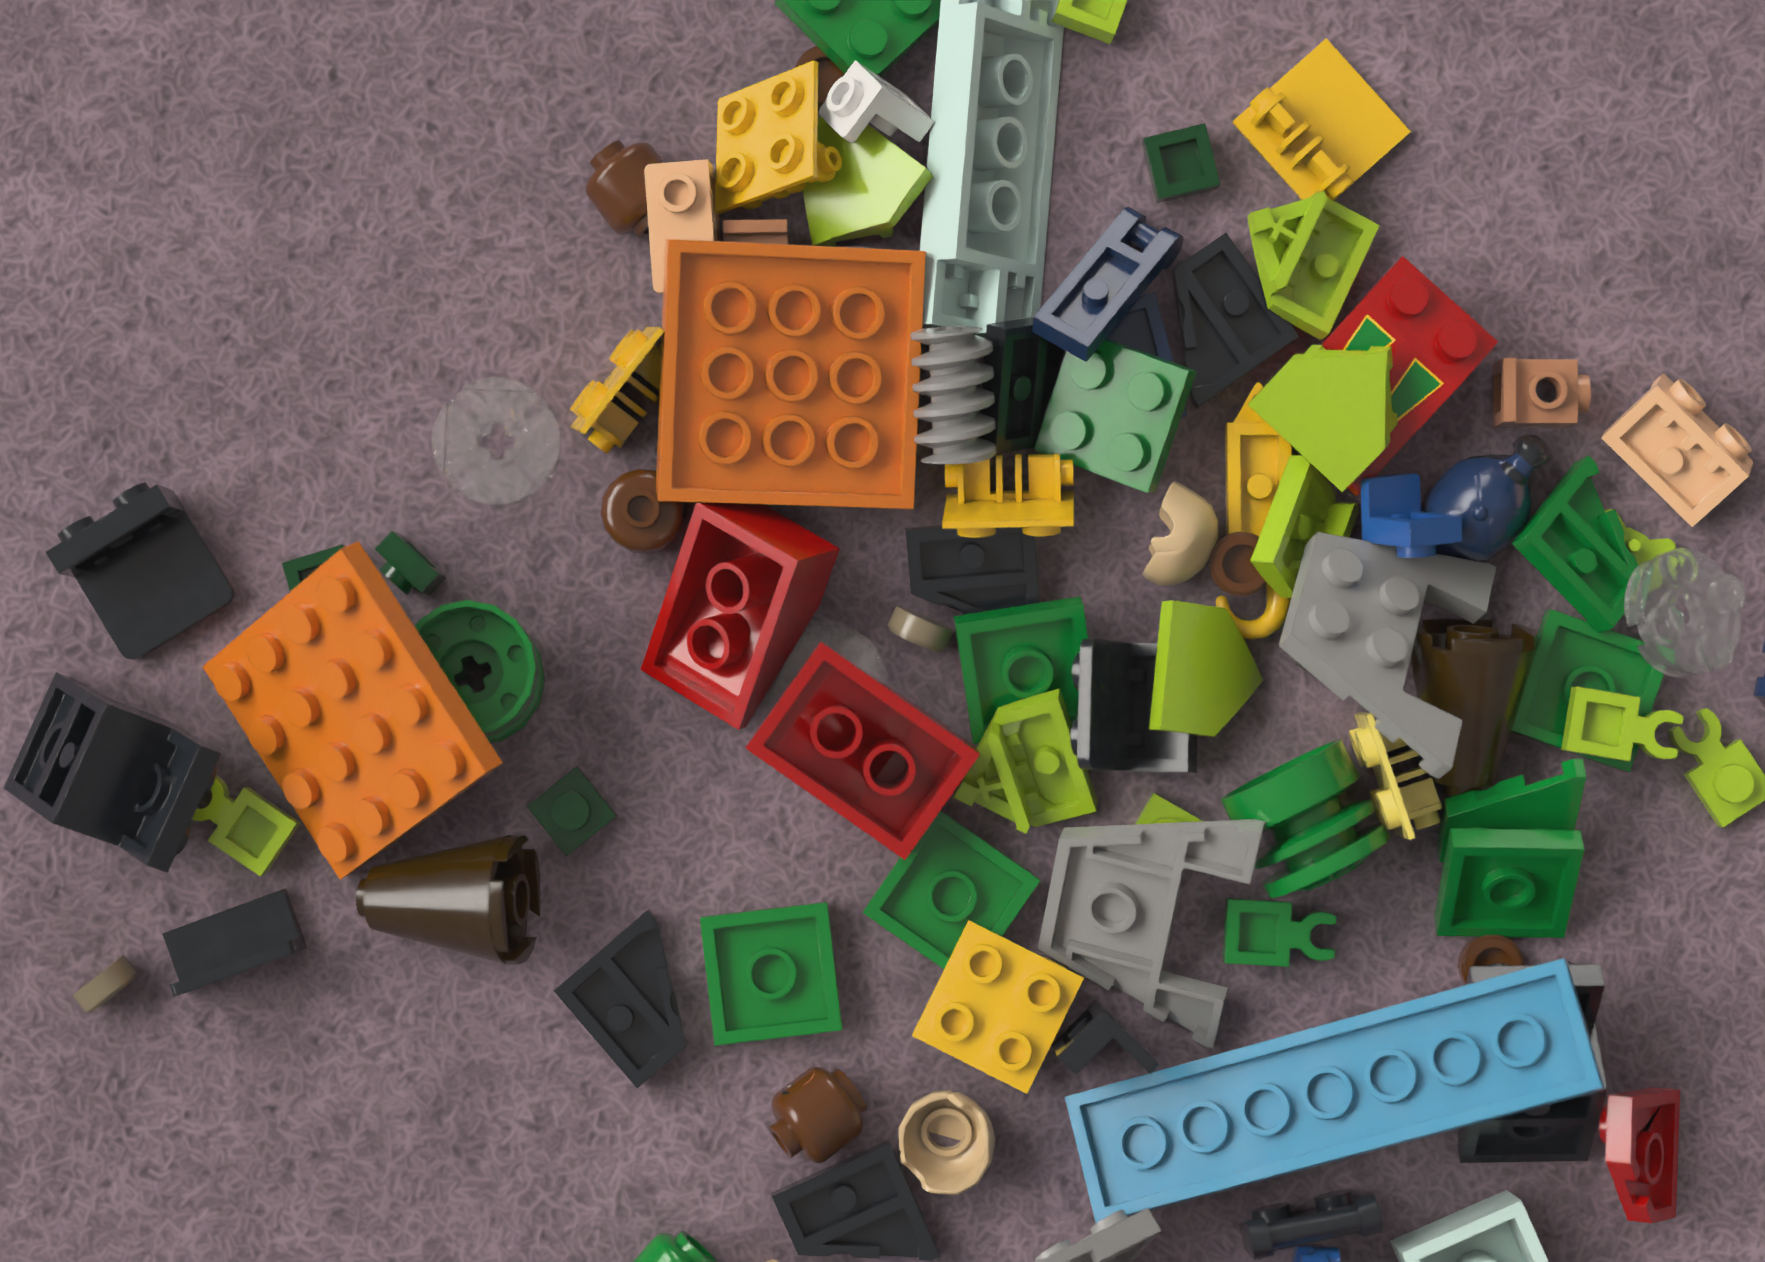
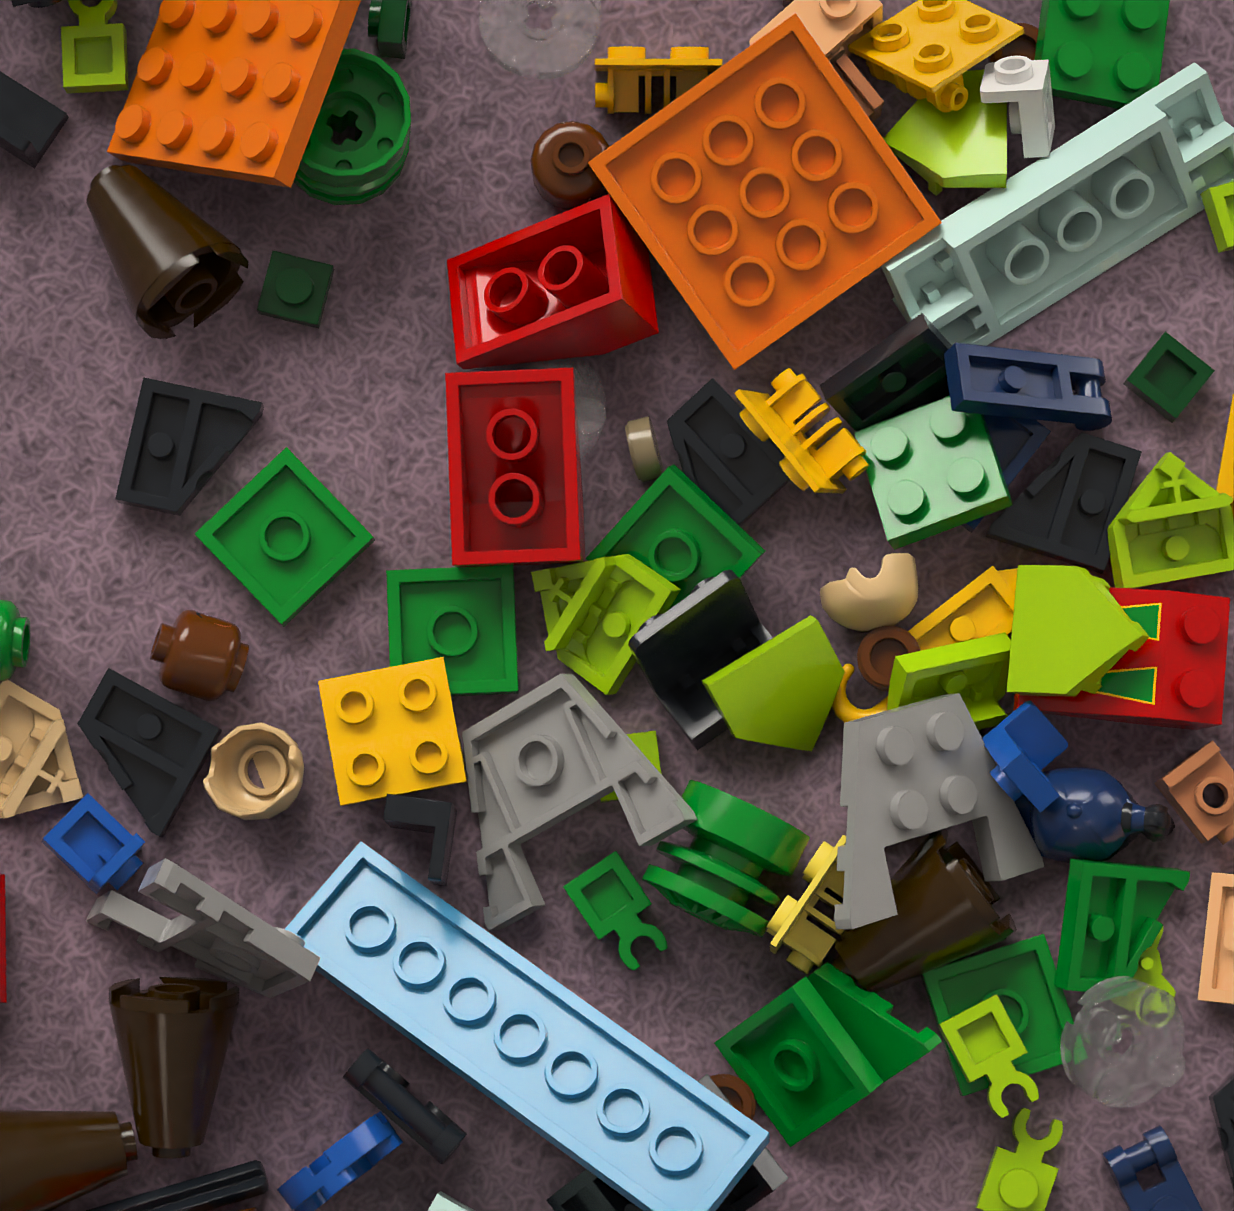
camera: 50 degrees right, 5 degrees down
(955, 395) = (847, 328): light grey piece -> none

